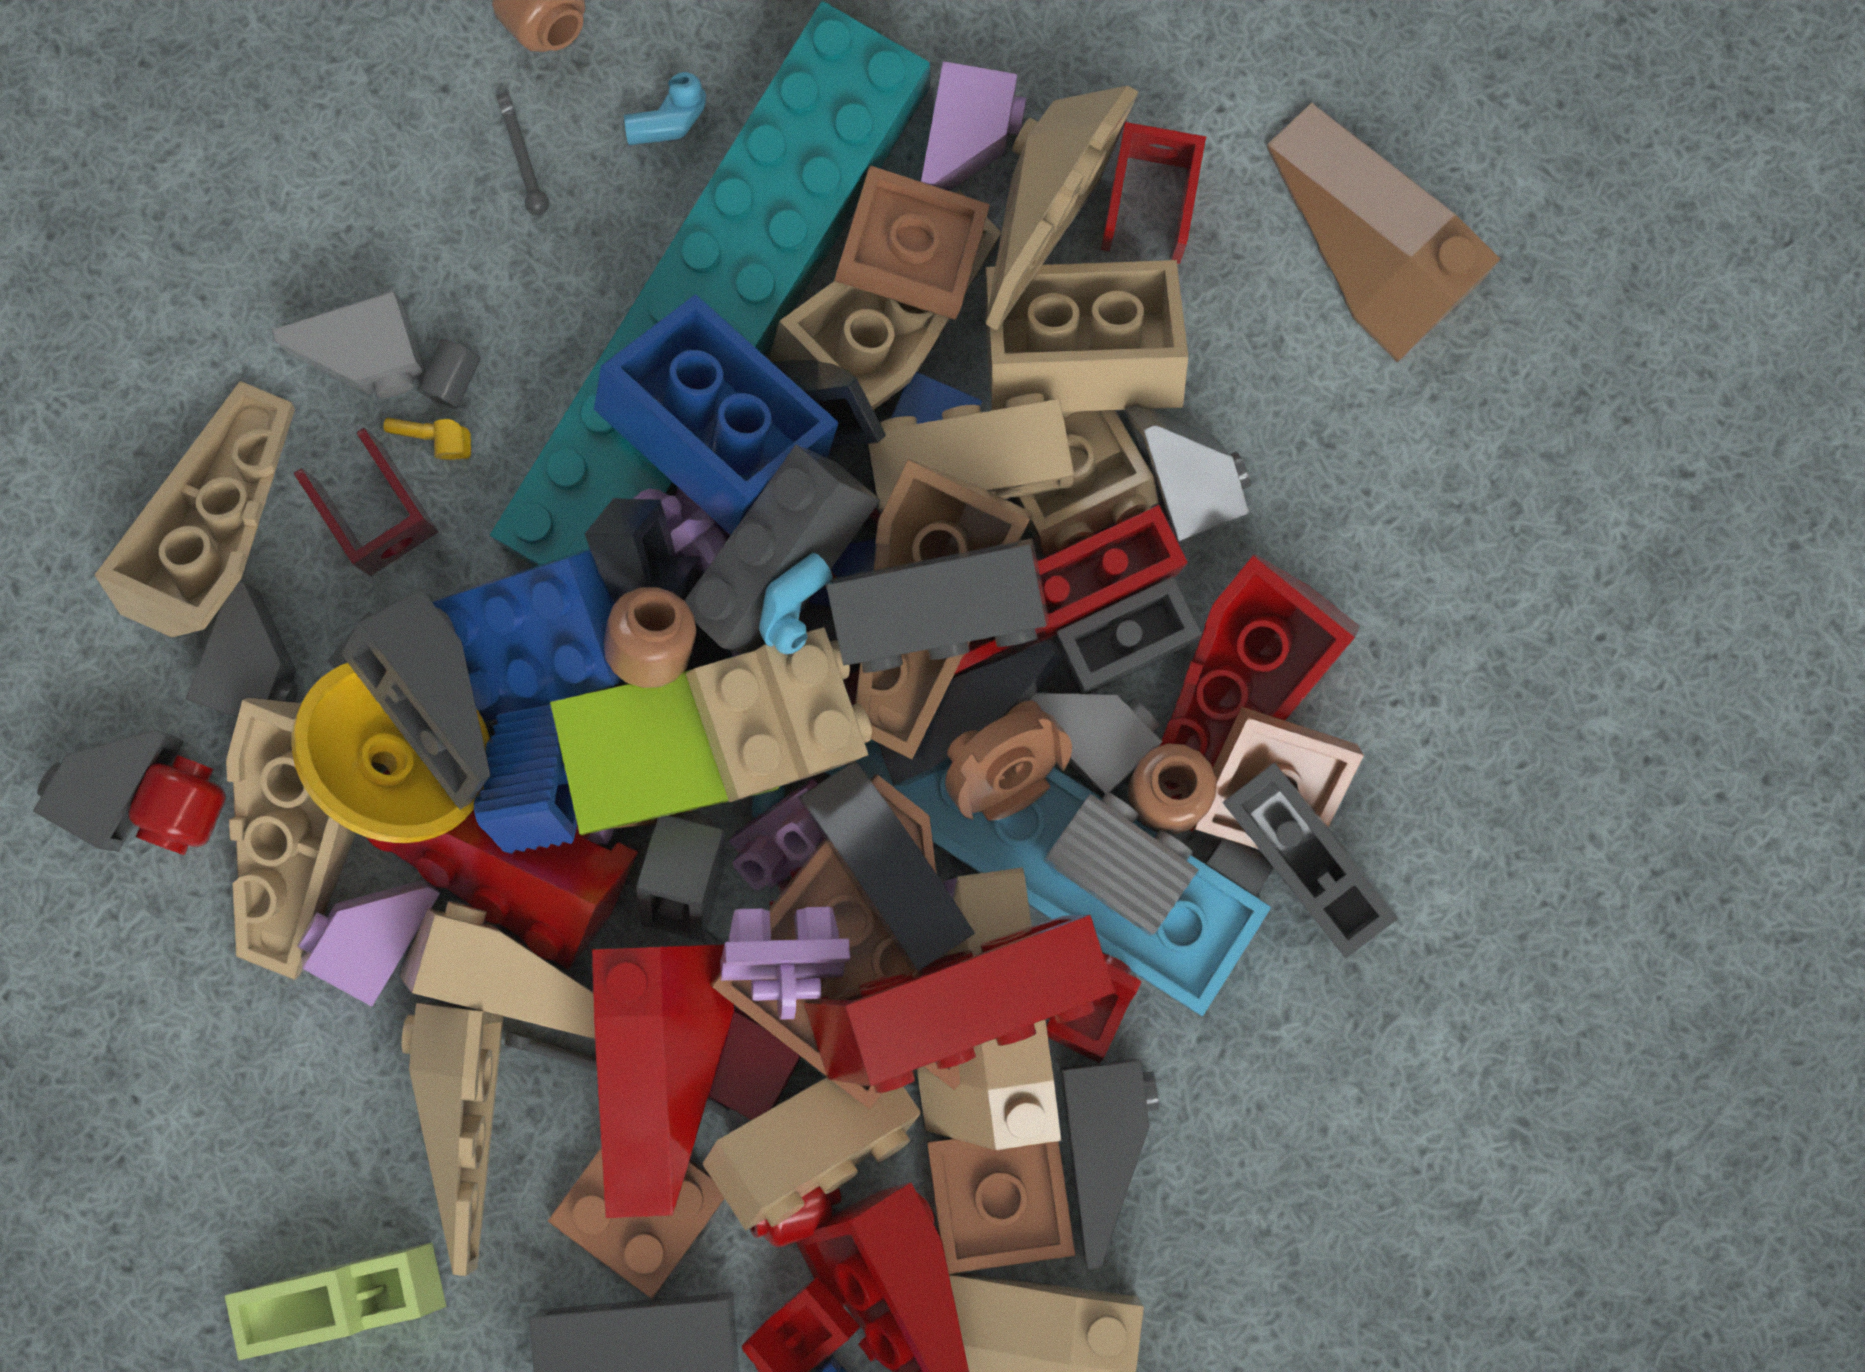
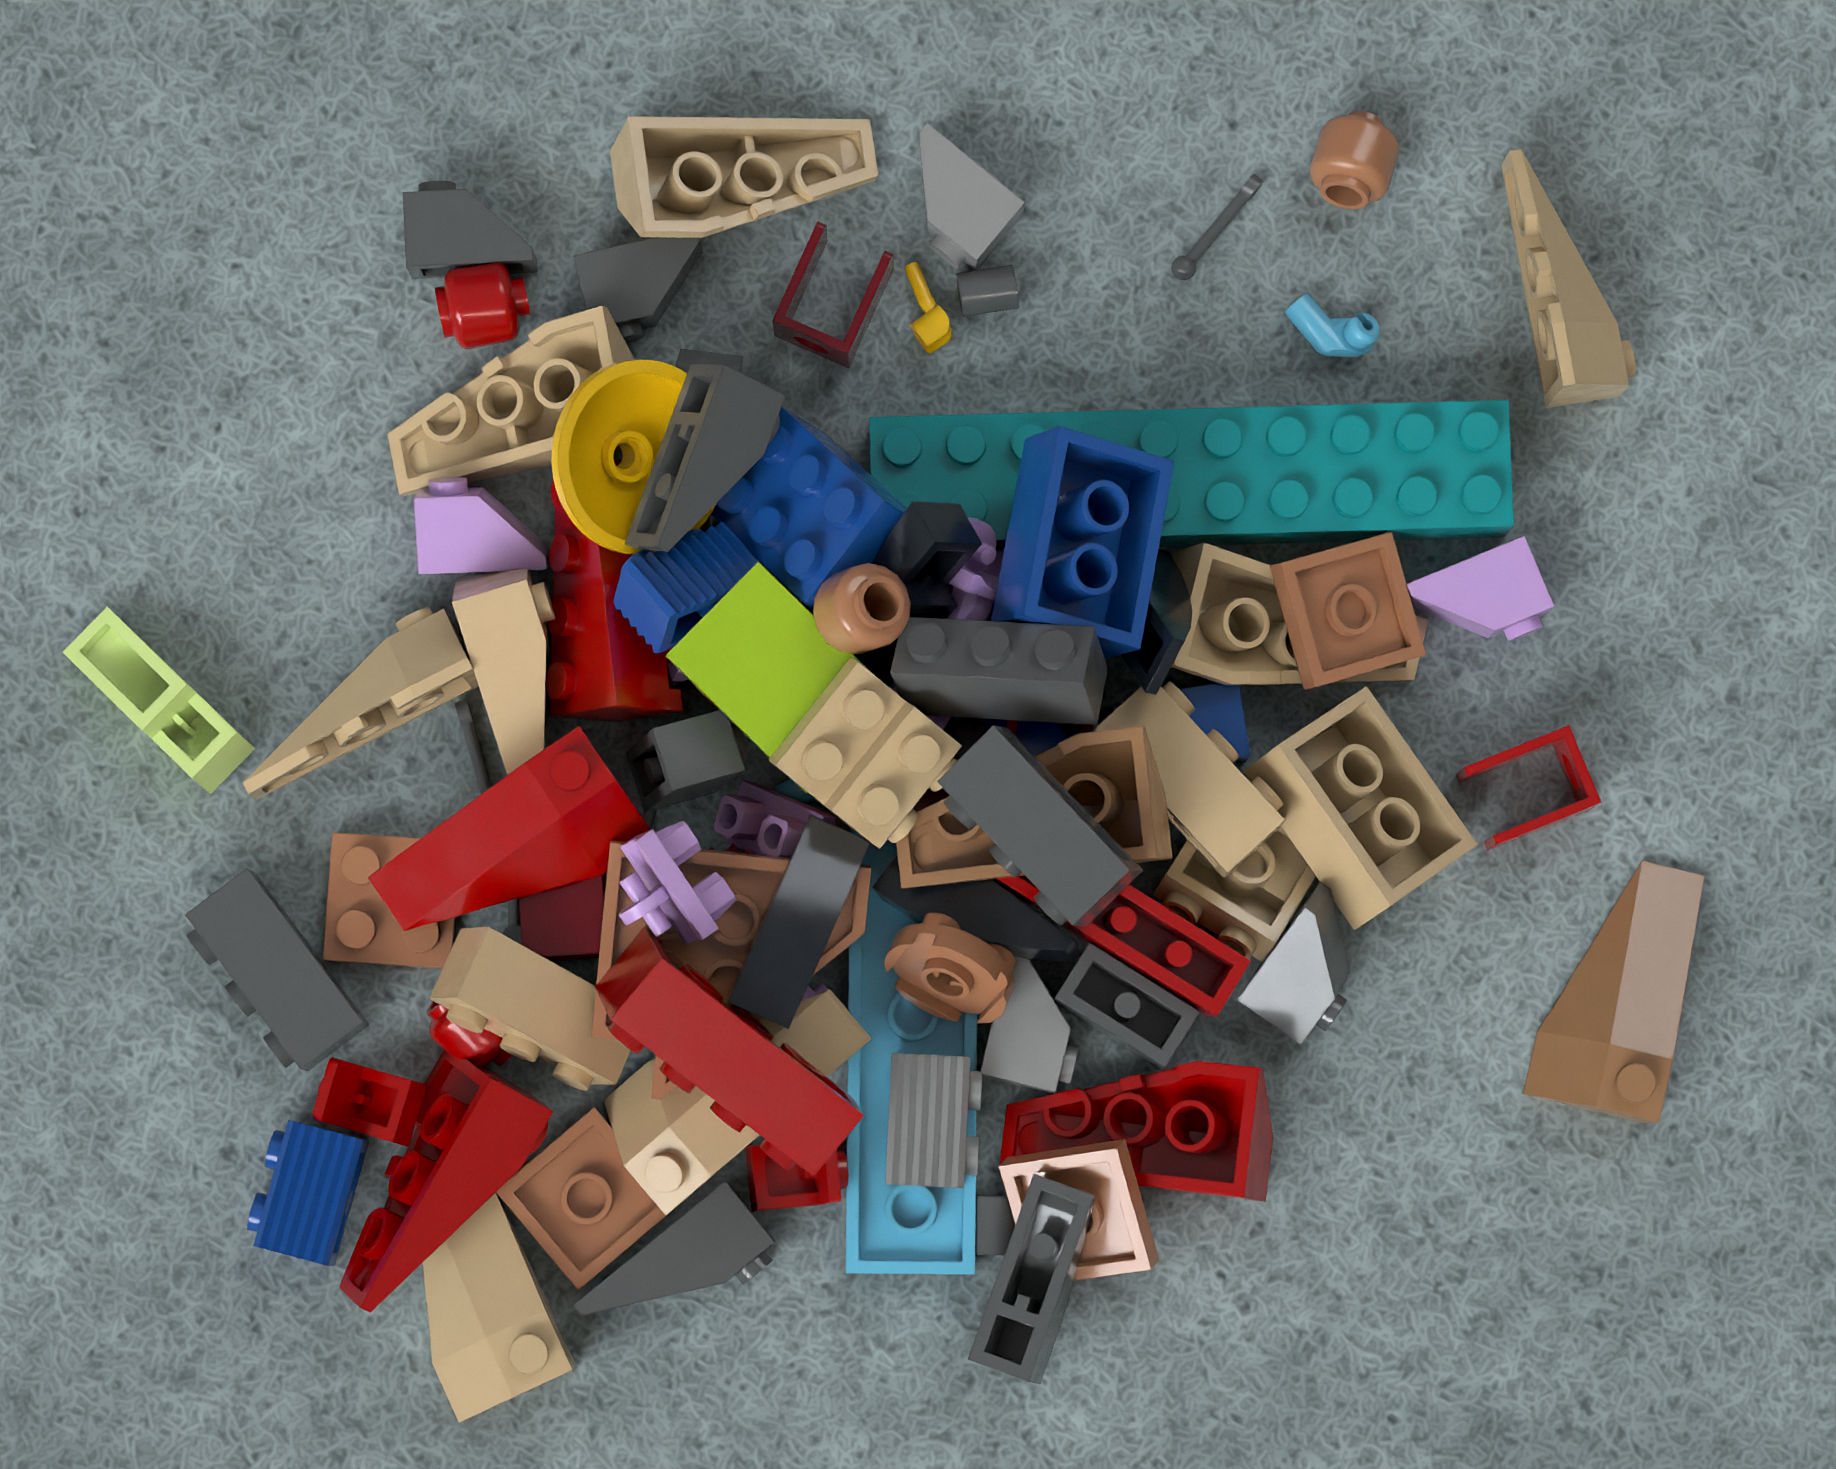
camera: 55 degrees right, 0 degrees up
(783, 601) = (957, 699): medium azure arm -> none
(1052, 180) = (1479, 695): tan wedge -> none
(1185, 772) = (1041, 1118): nougat head -> none

